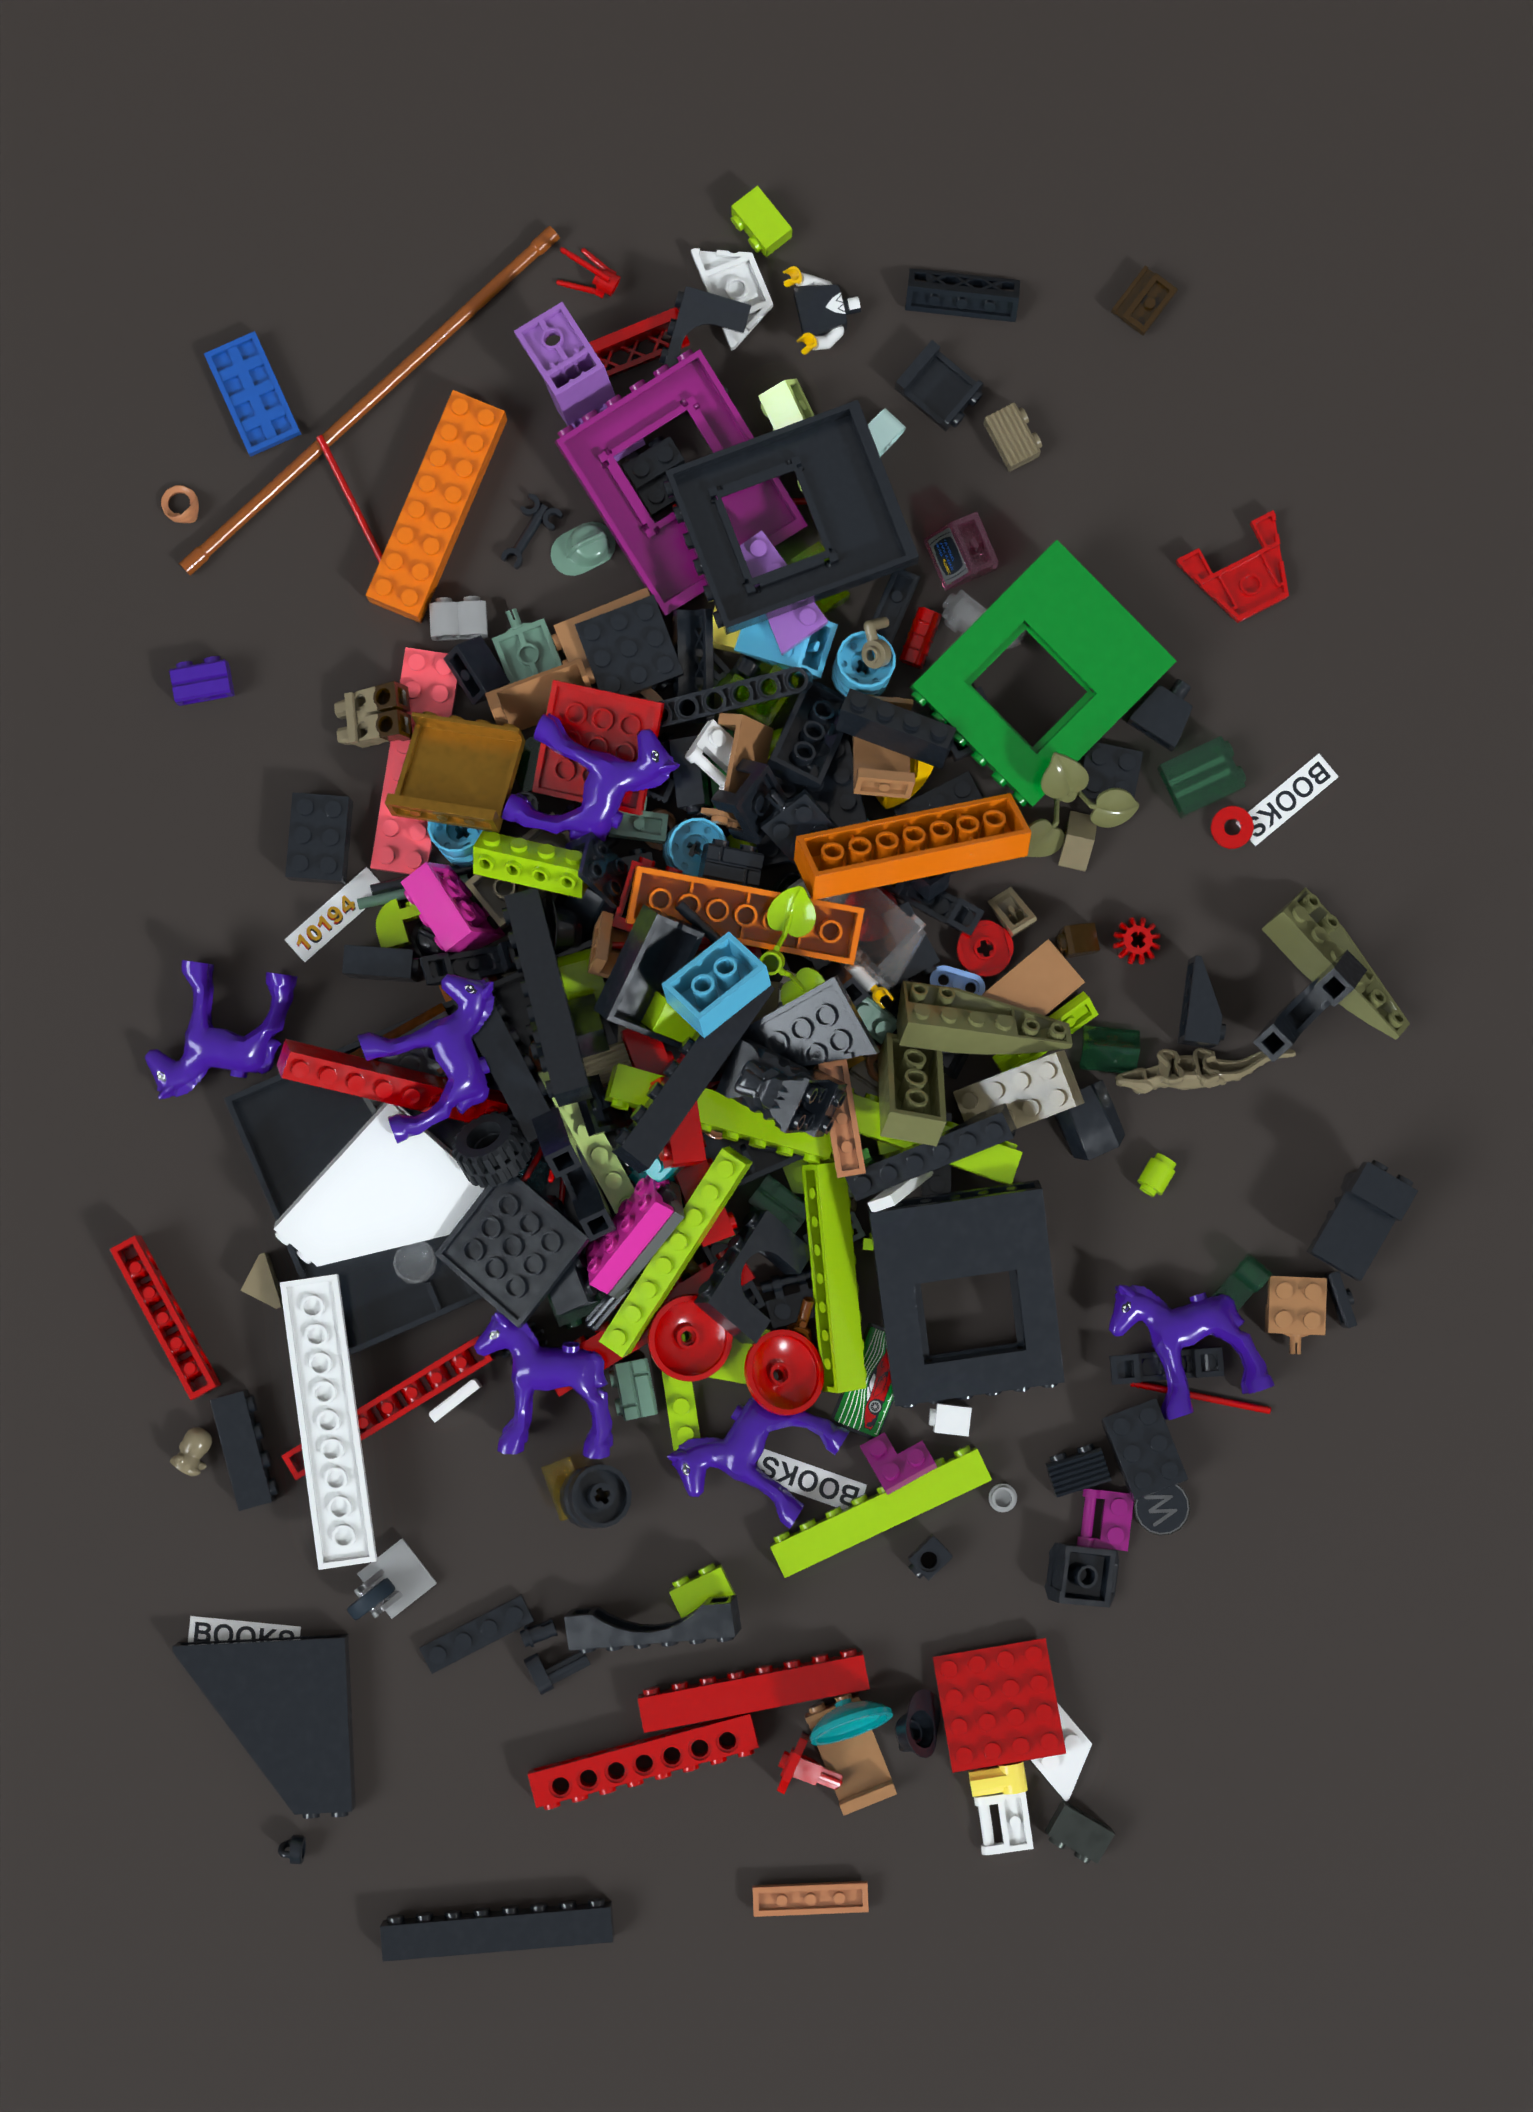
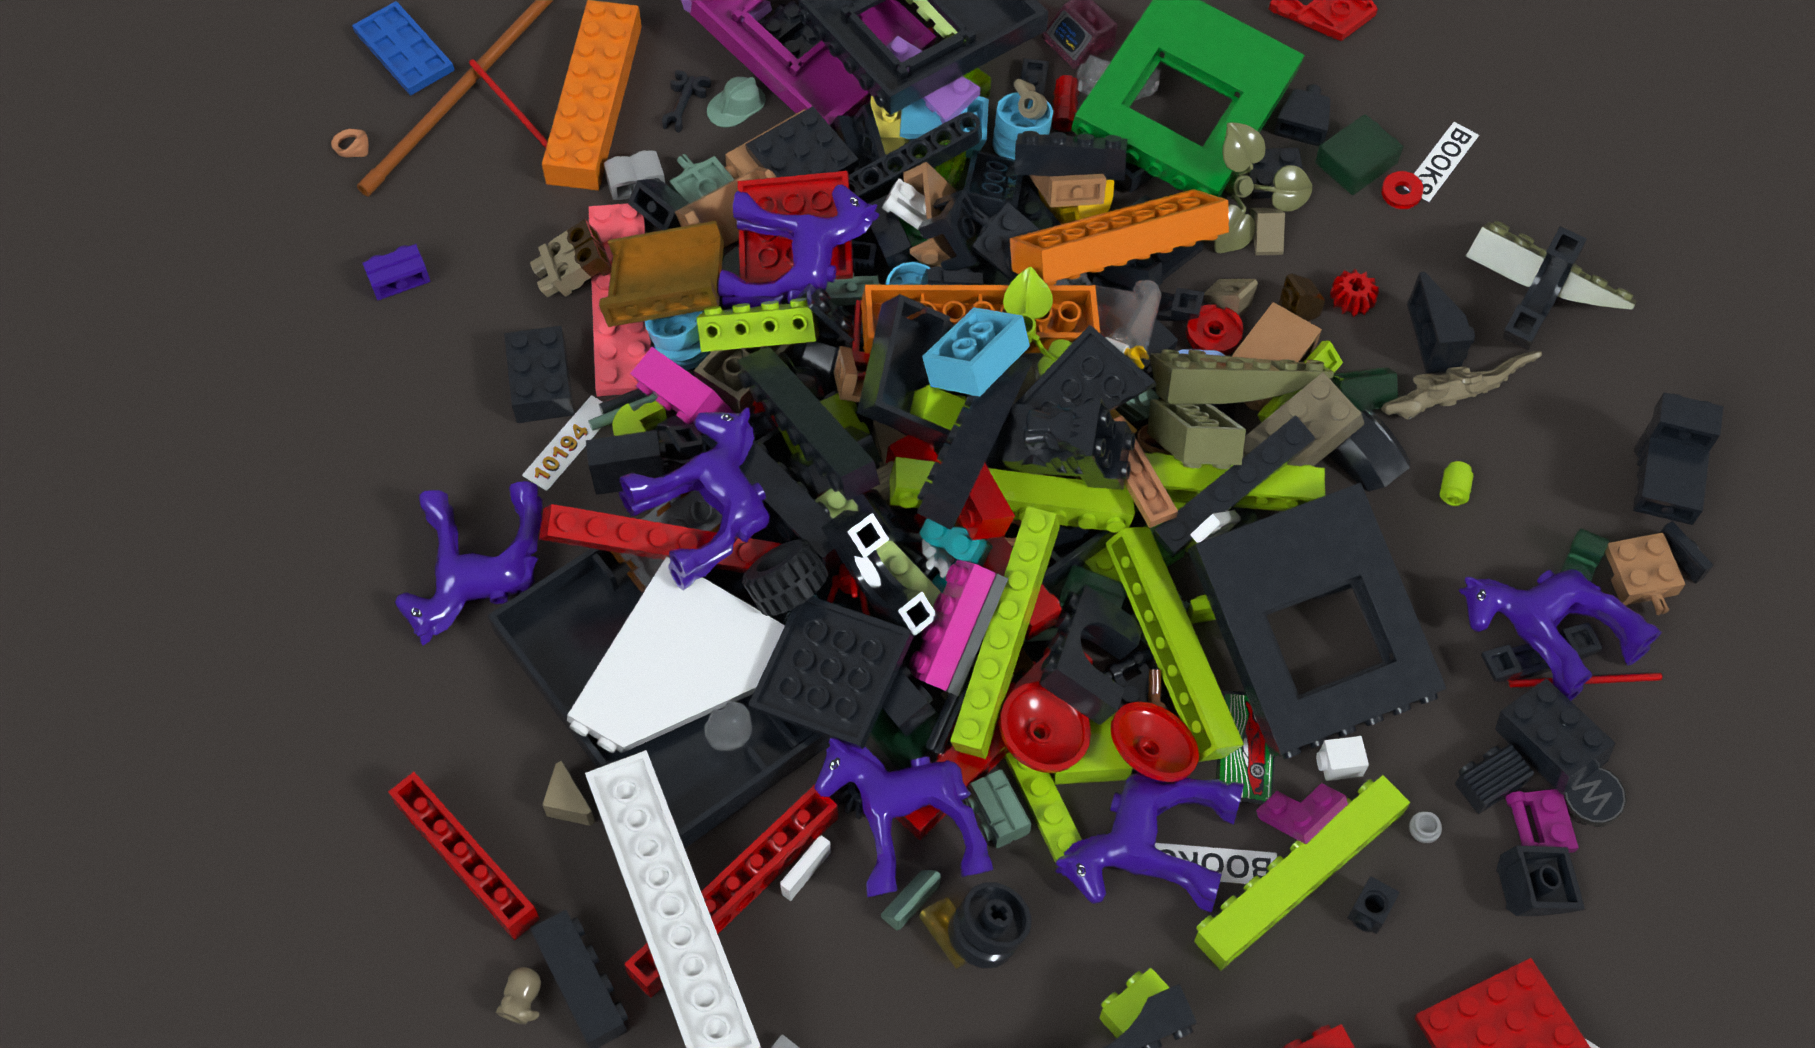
camera: 15 degrees left, 25 degrees down
(539, 1447) = (911, 898): none -> sand green slope

